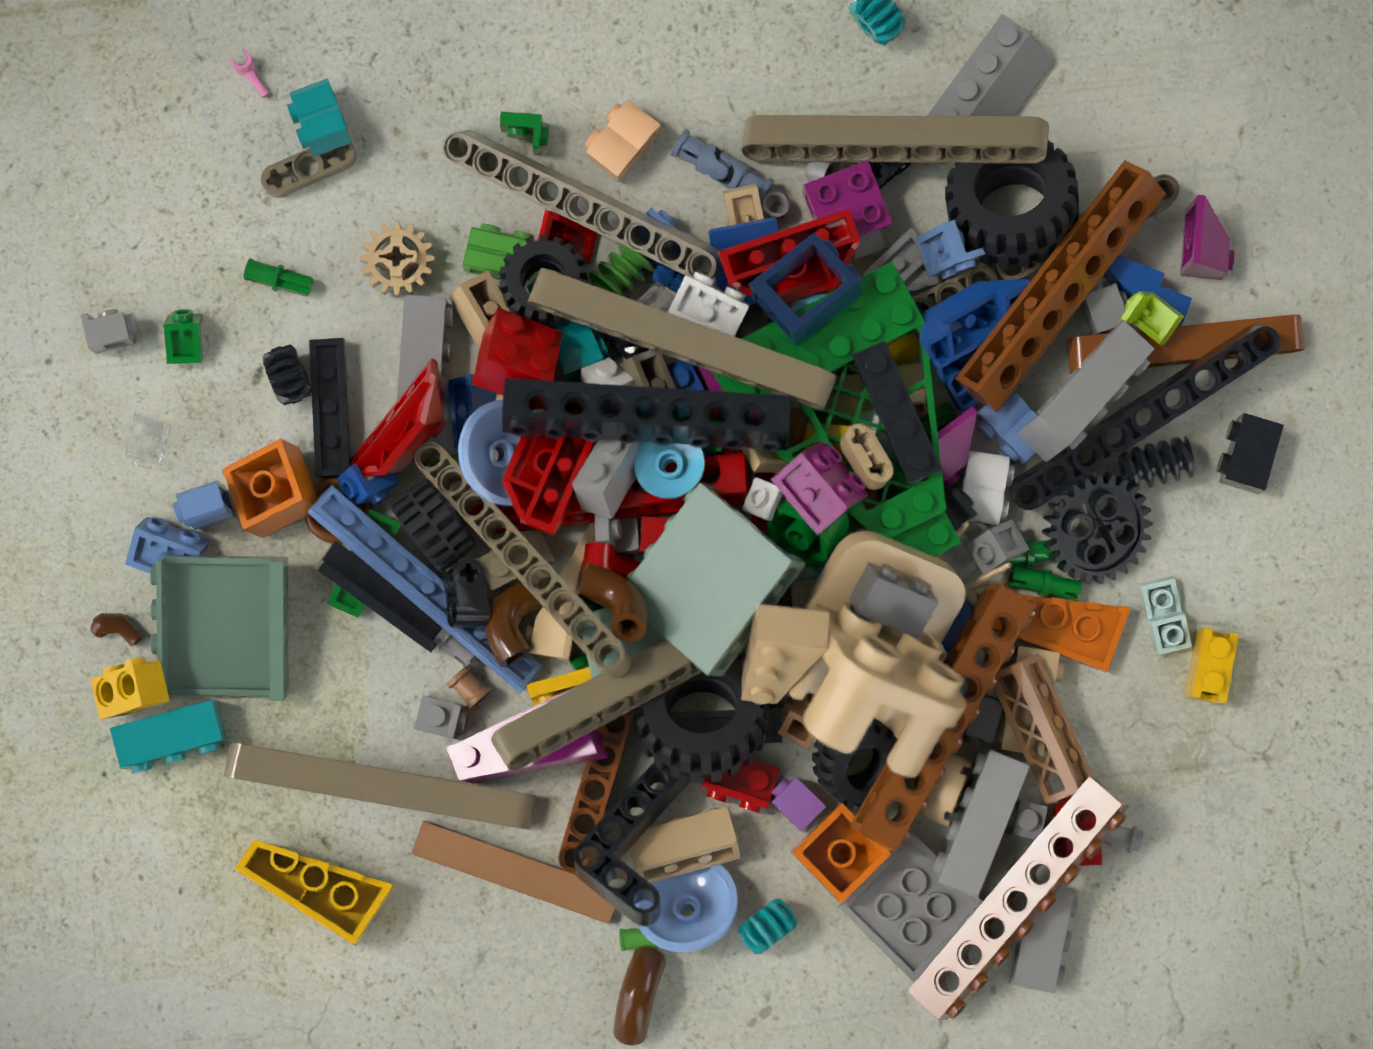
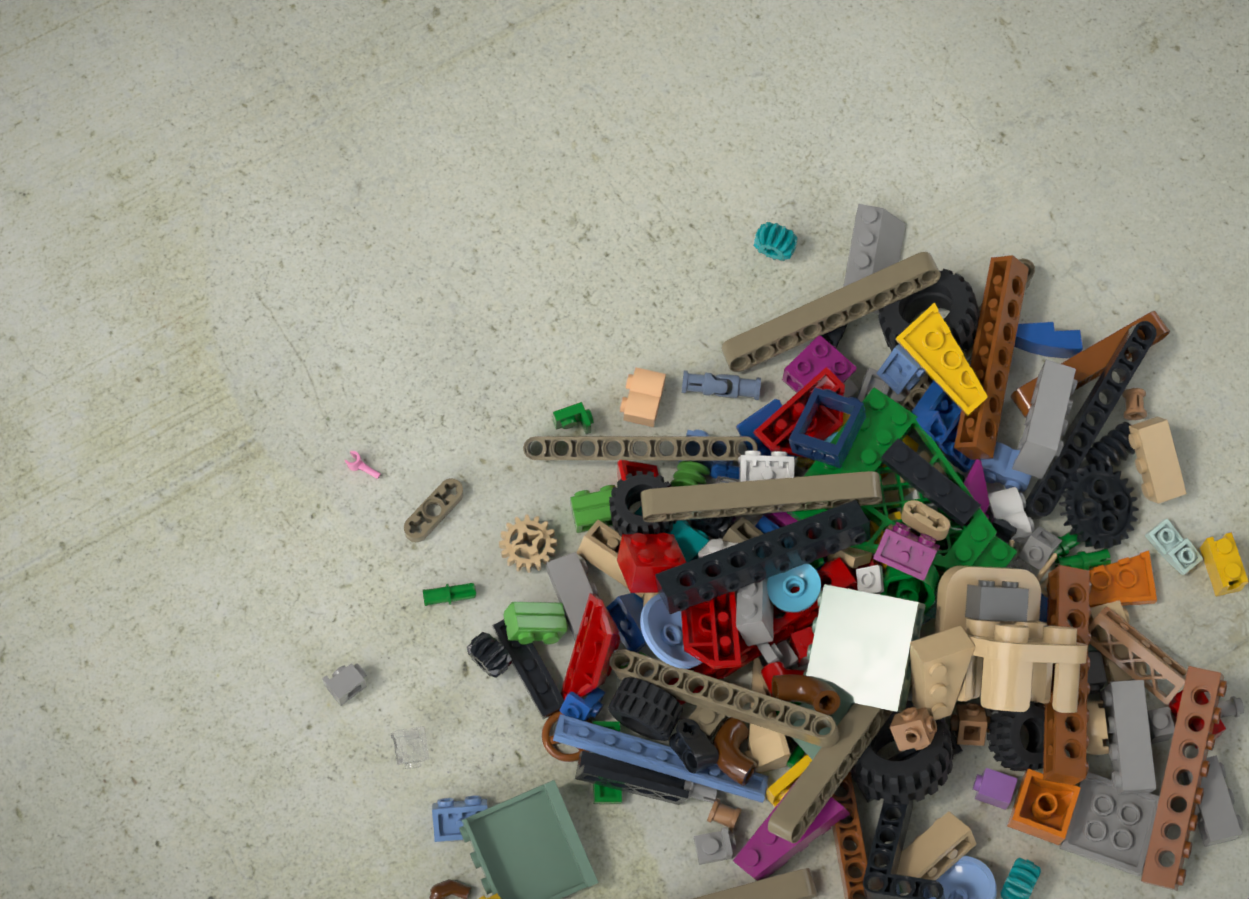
camera: 25 degrees left, 15 degrees down
(183, 337) = (401, 664): green bracket -> none
(203, 505) = (475, 771): medium blue brick -> none
(270, 488) = (516, 738): orange slope -> none
(319, 118) = (427, 471): teal brick -> none
(357, 360) = (535, 622): none -> bright green brick
(718, 702) = (913, 728): none -> medium nougat brick
(742, 204) = (749, 400): tan bracket -> none
(750, 786) = (955, 793): red bracket -> none
(769, 200) = (768, 389): light grey hinge -> none
(817, 170) = (786, 358): light grey hinge -> none
(989, 258) = (936, 351): none -> yellow wing
(1103, 308) = (1025, 363): light grey brick -> none
(1152, 315) = (1061, 350): lime bracket -> none
(1196, 504) = (1157, 460): none -> tan brick
(1205, 243) = (1067, 291): magenta slope -> none
(1212, 419) = (1134, 404): none -> medium nougat bush
(1249, 453) = (1173, 405): black brick -> none

